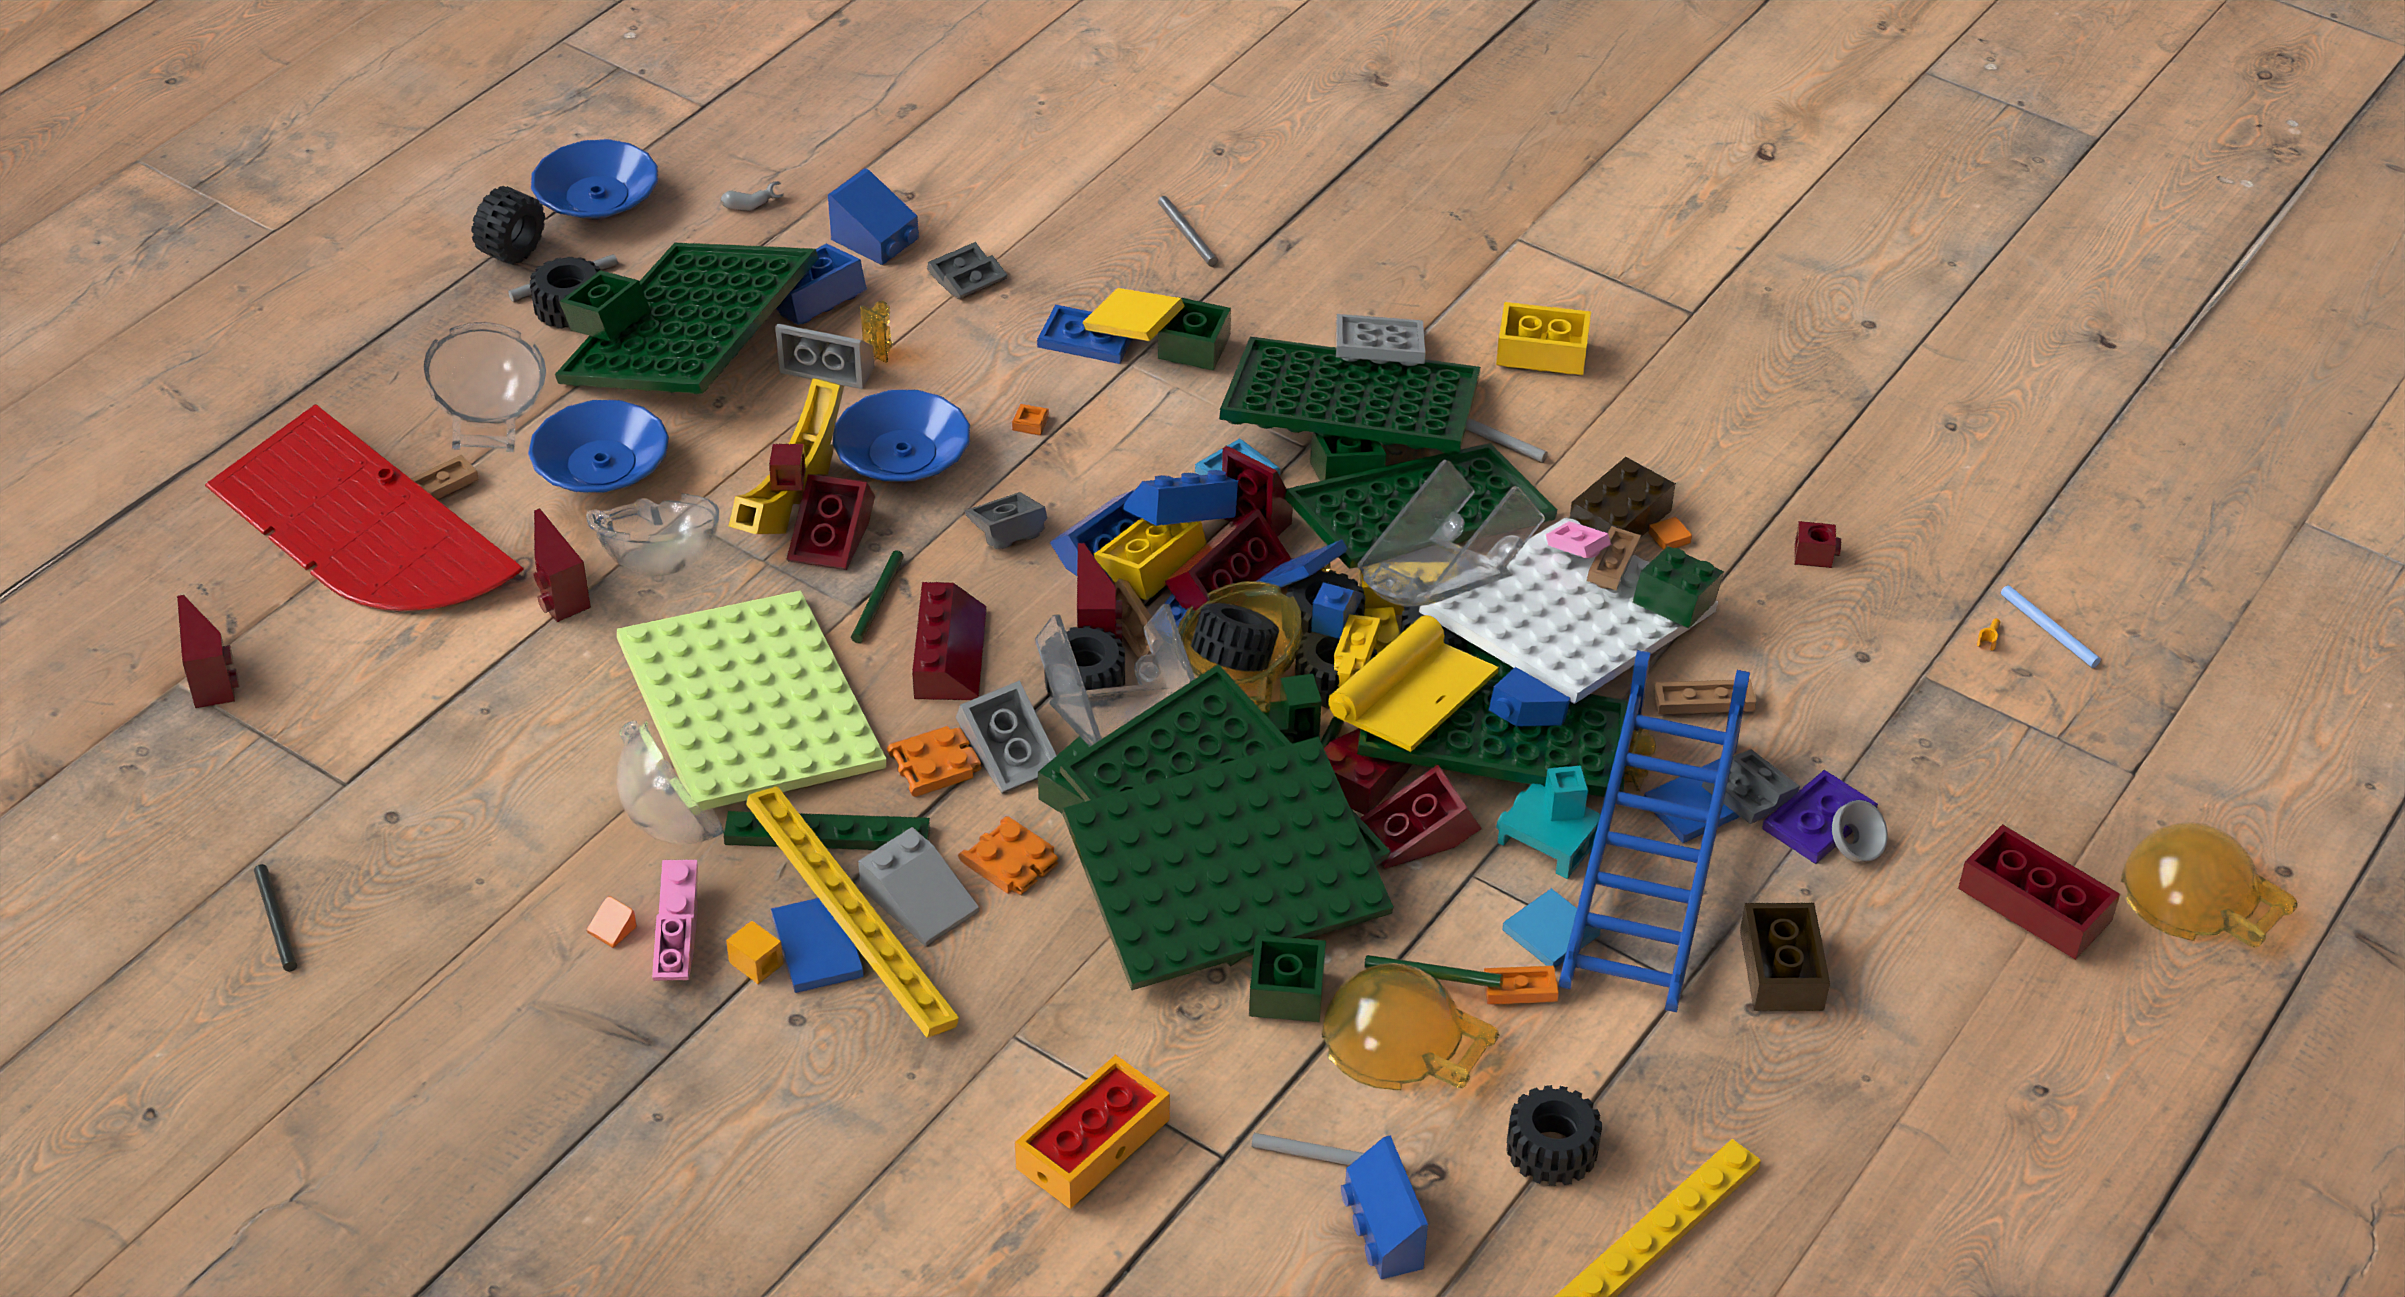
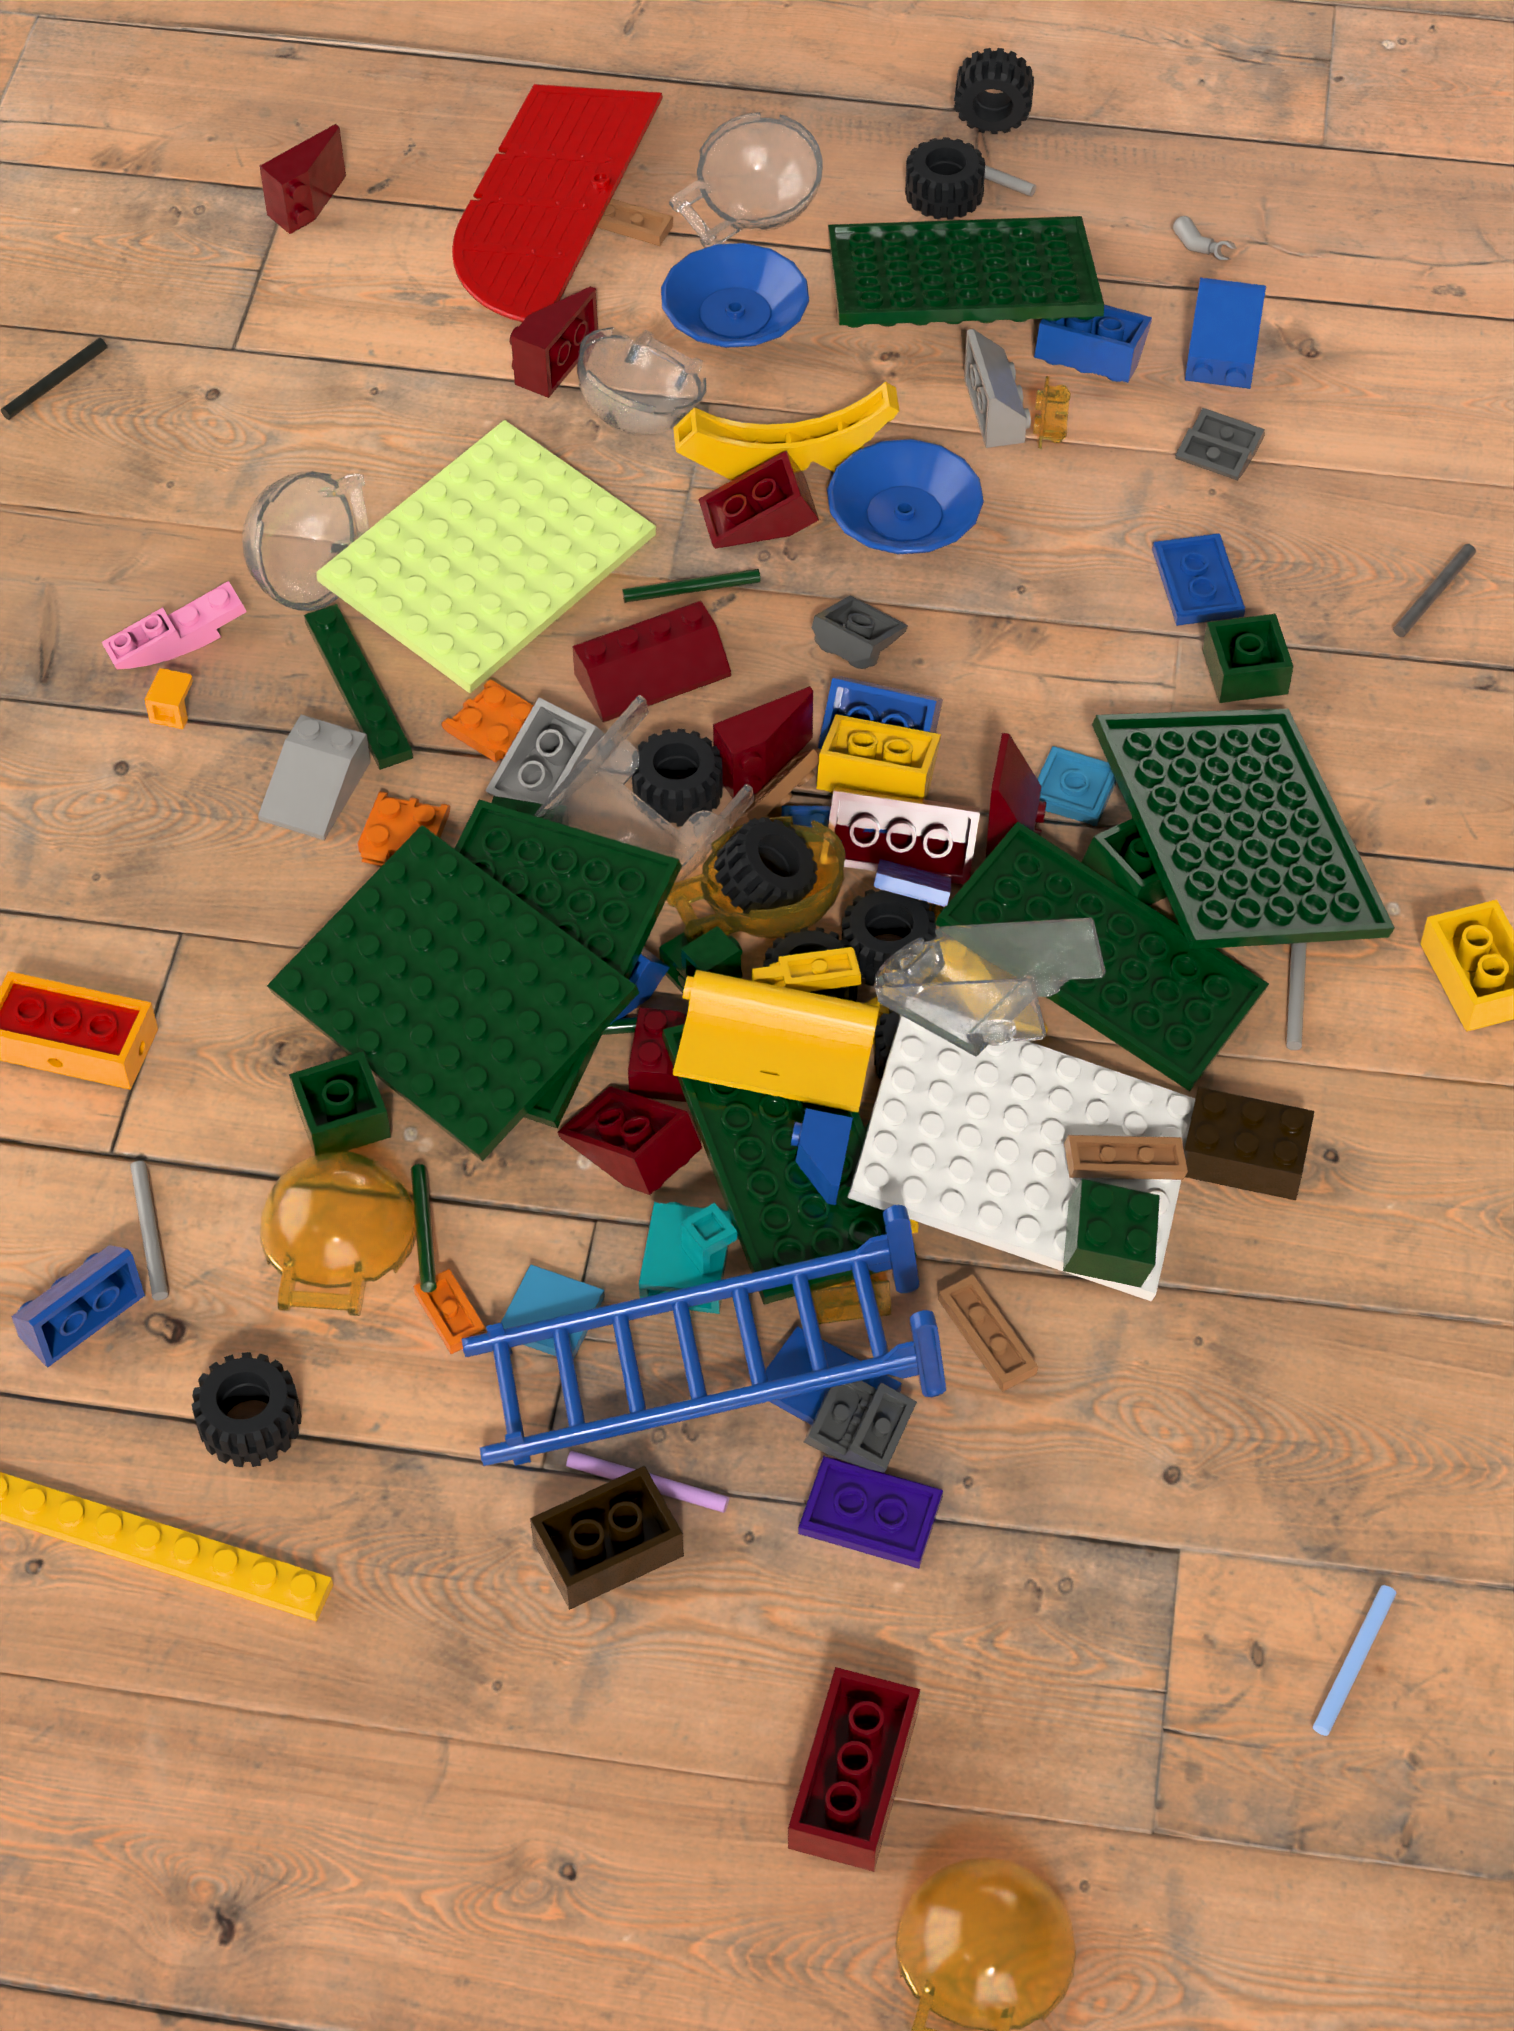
camera: 65 degrees right, 10 degrees up
(594, 178) = (1115, 115): blue dish -> none
(605, 305) = (923, 206): dark green brick -> none
(612, 922) = (160, 590): slope -> none
(787, 467) = (770, 427): dark red brick -> none
(815, 946) = (214, 739): blue tile -> none
(853, 912) = (248, 742): yellow plate -> none
(1030, 419) = (1030, 590): orange tile -> none
(1133, 314) = (1225, 593): yellow tile -> none
(1184, 498) = (939, 746): blue slope -> none
(1332, 609) = (862, 928): blue slope -> none
(1380, 339) = (1362, 818): light grey plate -> none
(1578, 539) = (1119, 1109): bright pink plate -> none
(1670, 533) = (1246, 1210): orange tile -> none
(1727, 931) = (665, 1486): none -> lavender bar
(1816, 544) = (1323, 1344): dark red brick -> none
(1868, 831) = (832, 1567): light grey piece -> none
(1989, 634) = (1292, 1597): light orange hand -> none

